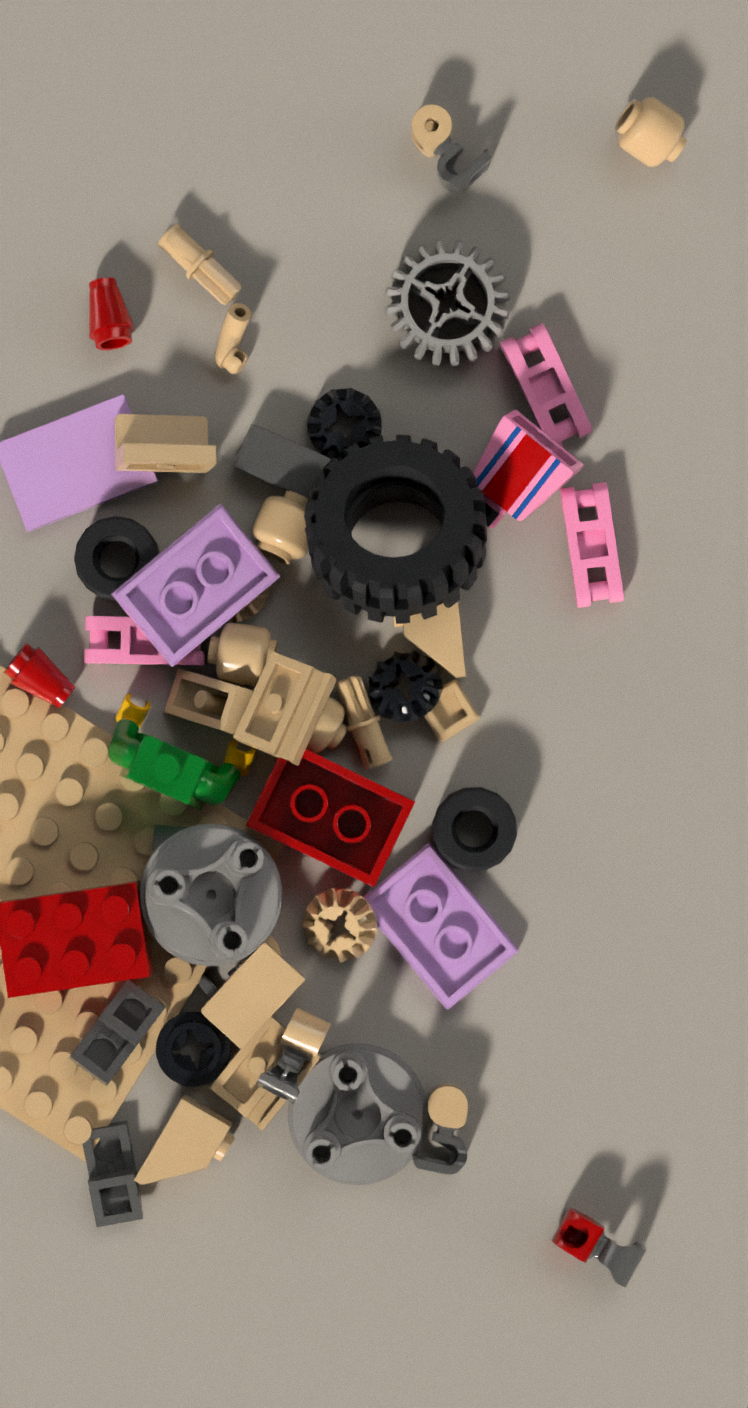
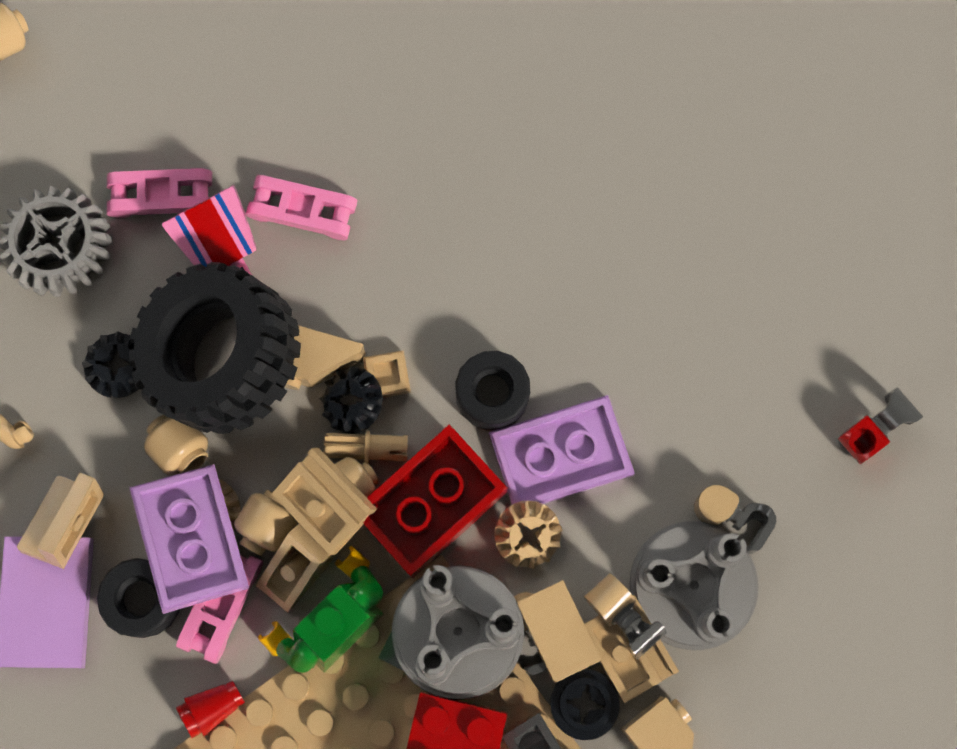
camera: 70 degrees left, 10 degrees down
(279, 461) = (119, 429): dark grey slope -> none

